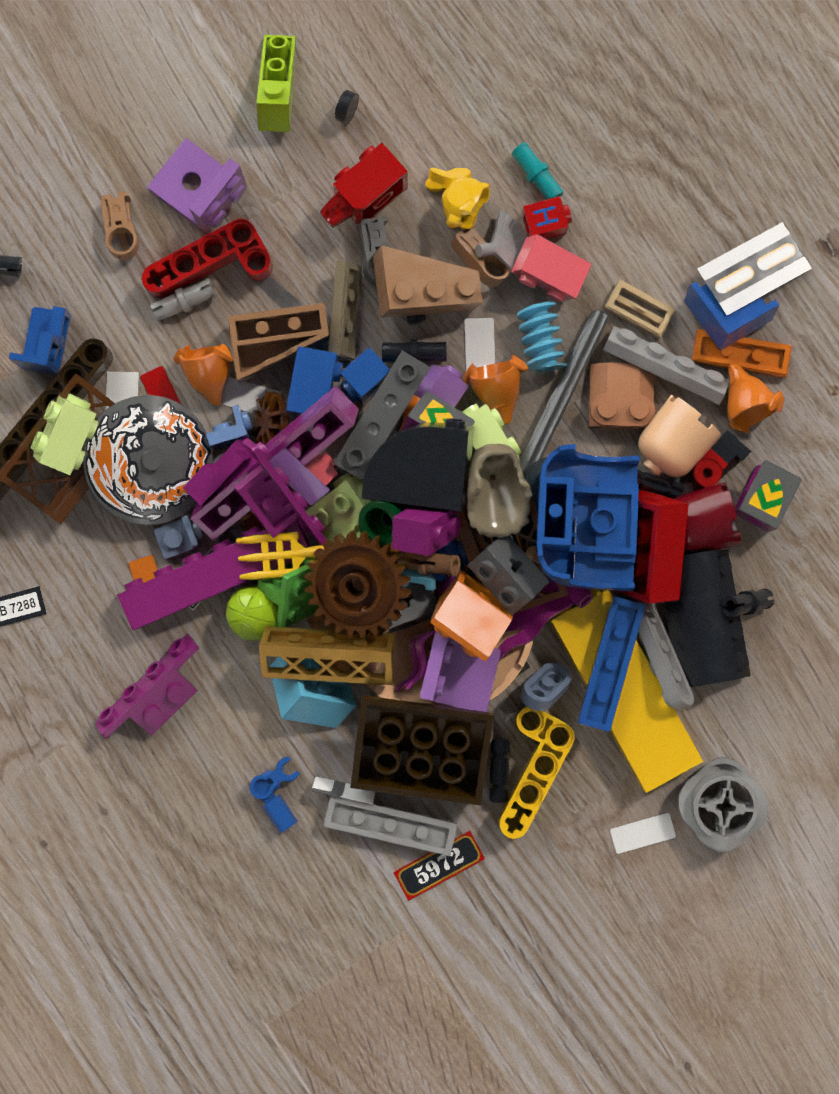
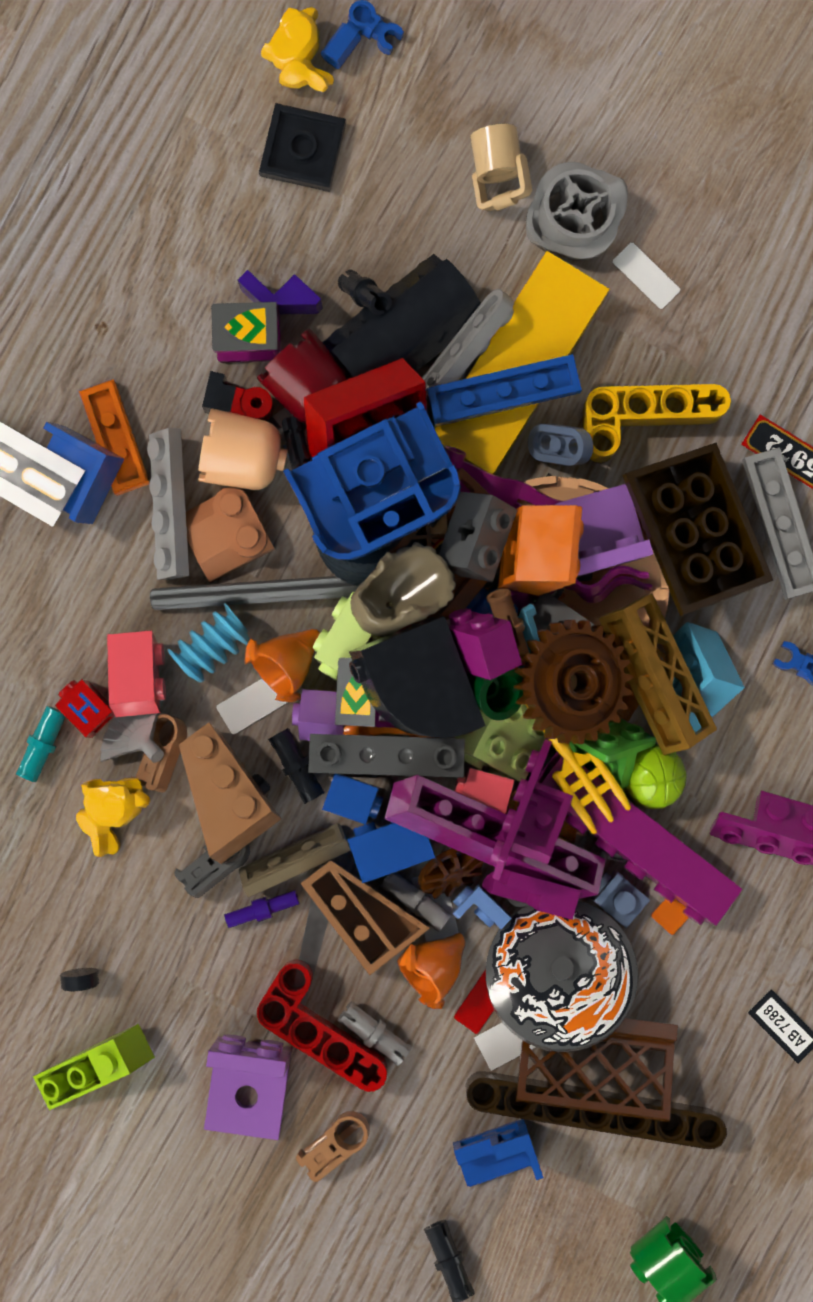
camera: 115 degrees left, 0 degrees up
(64, 434) = (589, 1072): yellowish green brick -> none
(261, 383) = (415, 901): none -> light grey pin
(301, 478) = (497, 803): medium lavender sticker -> none
(322, 268) = (261, 909): none -> dark purple bar
(342, 790) = (777, 593): white sticker -> none
(366, 187) = (155, 909): red hinge -> none
(499, 770) = (668, 445): black axle -> none
(634, 320) = (125, 595): tan tile -> none
(749, 400) = (158, 402): orange hat -> none
(775, 545) = (291, 298): none -> dark purple slope
(798, 765) = (497, 161): none -> tan piece

